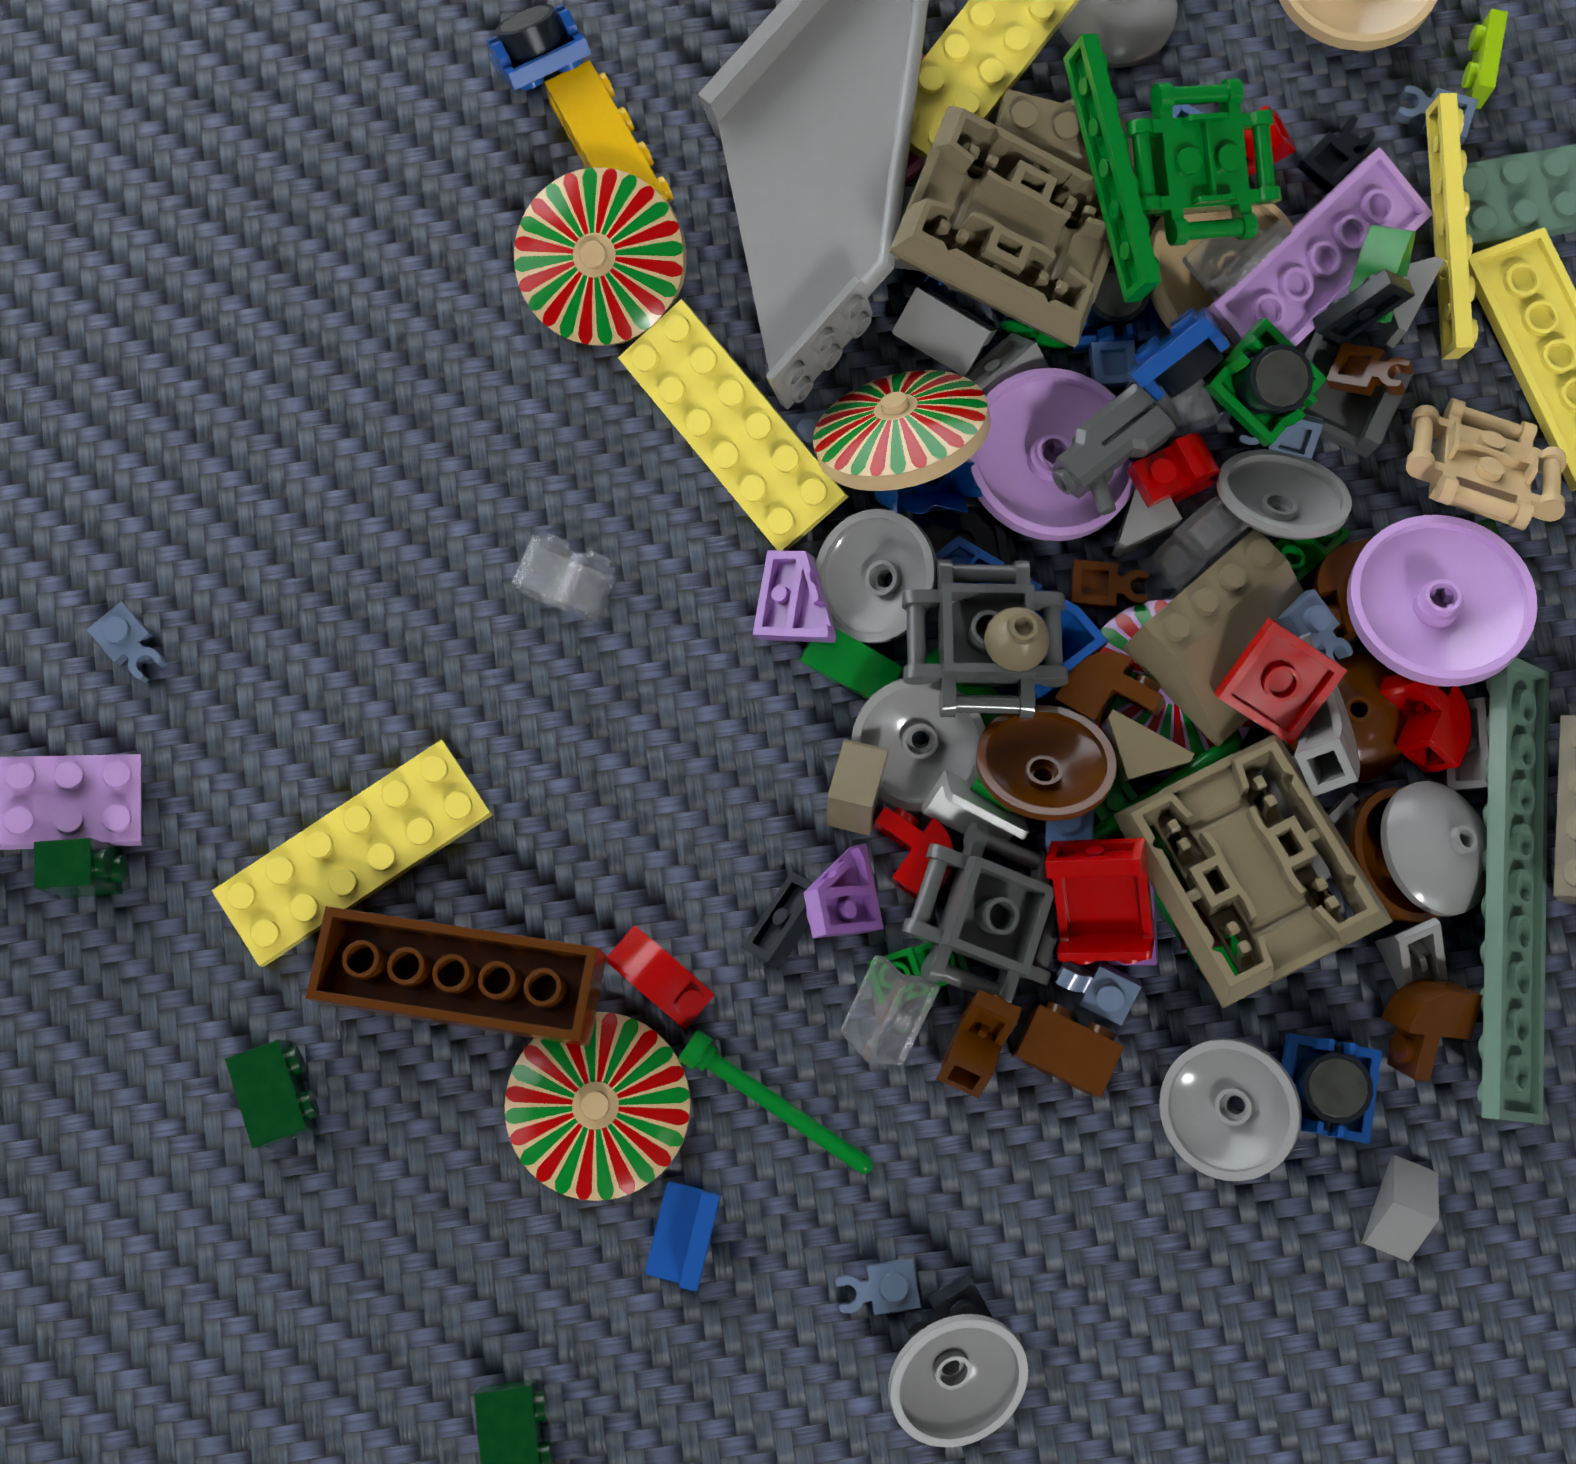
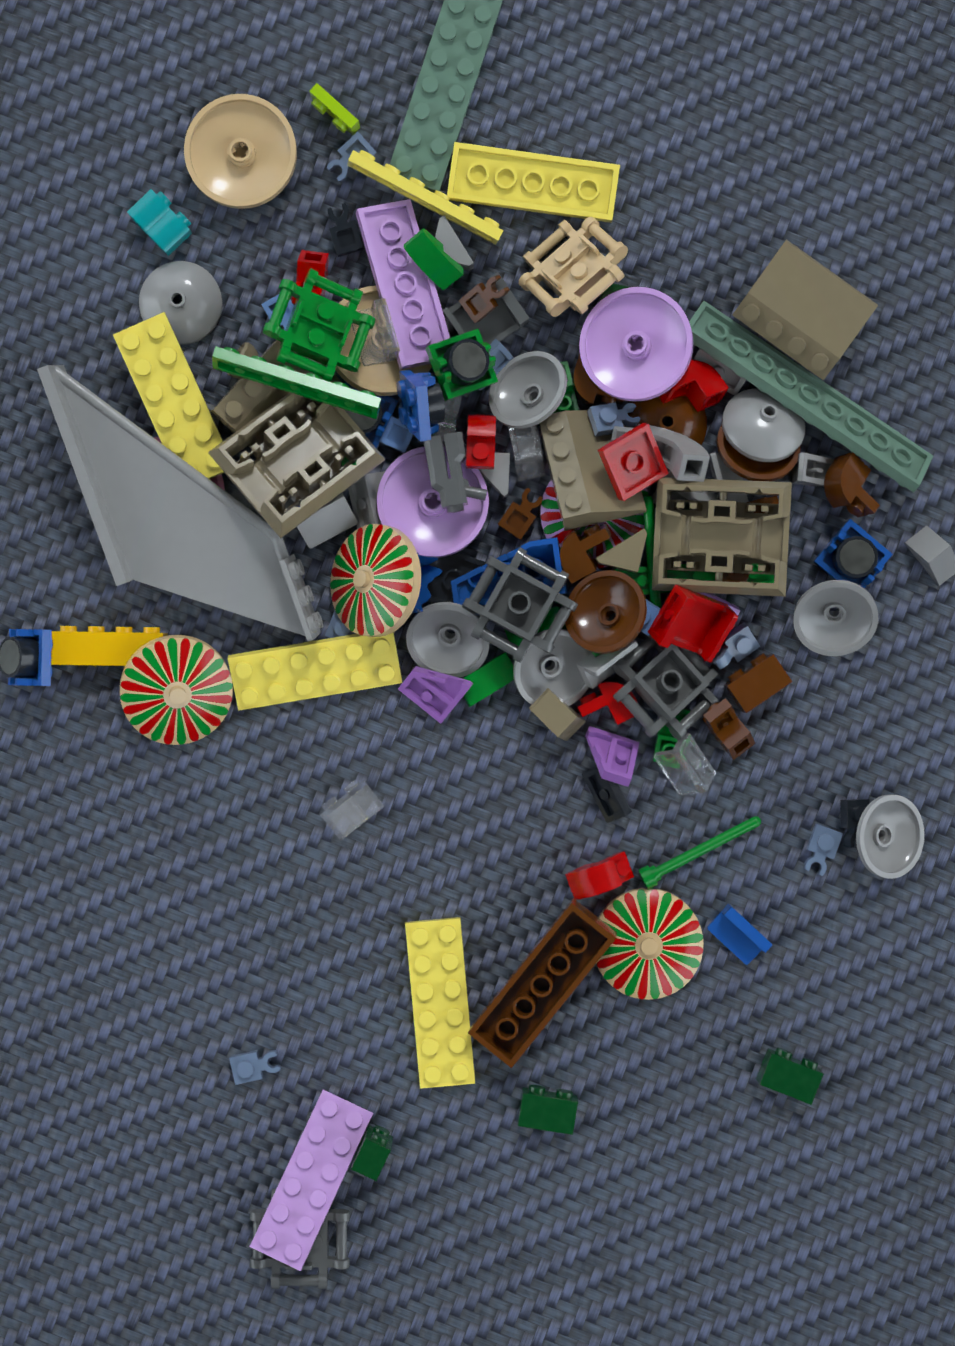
camera: 65 degrees left, 10 degrees up
(1017, 639) = (534, 592): dark tan brick -> none
(1363, 306) = (449, 285): black plate -> none

